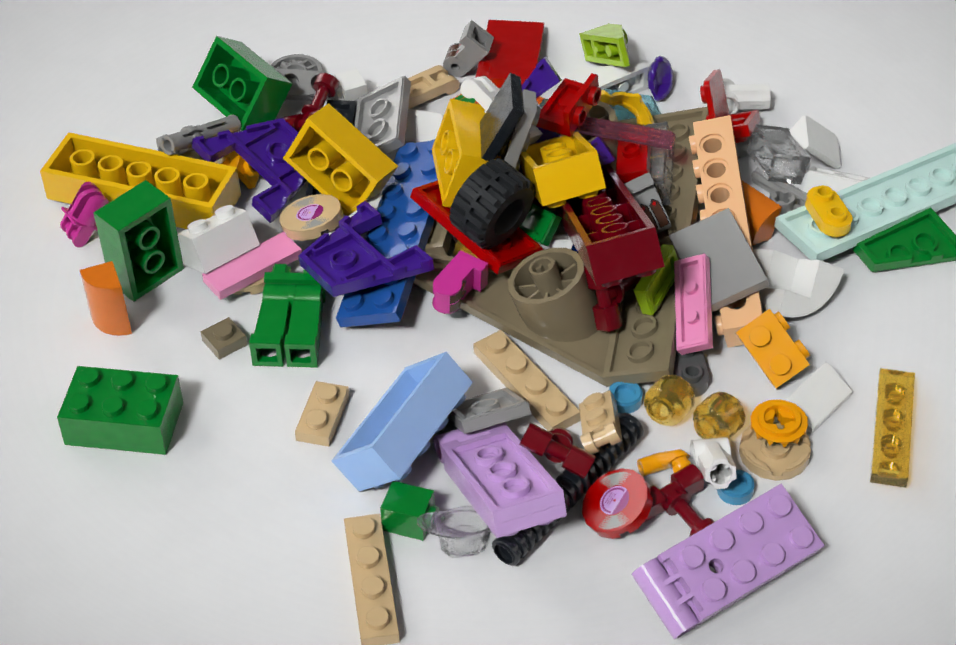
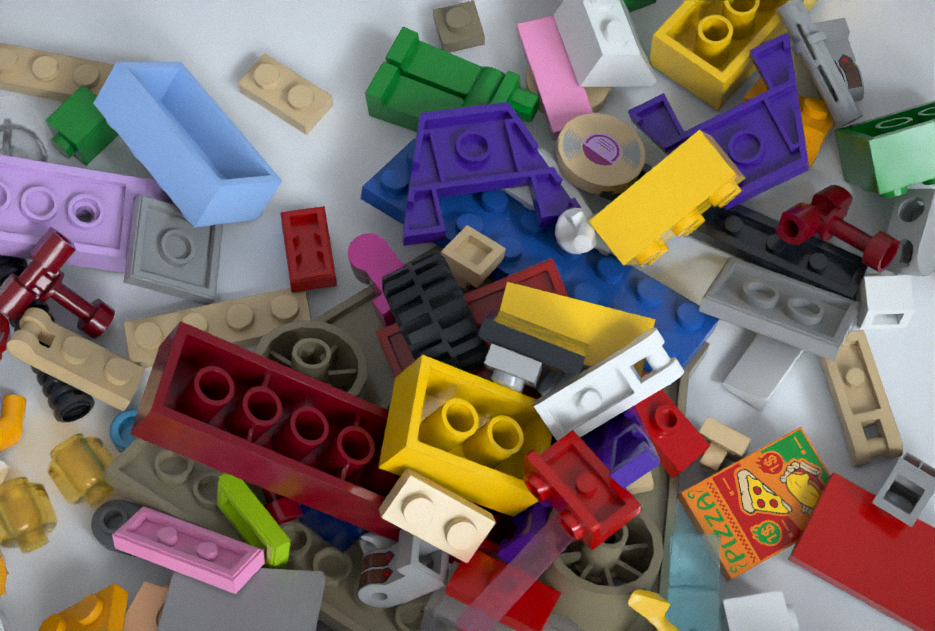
camera: 115 degrees right, 20 degrees up
(381, 196) = (575, 232): none -> white plate
(427, 233) = (472, 257): none -> tan tile
(457, 341) = (308, 249): none -> red plate
(616, 166) = (436, 515): none -> plate

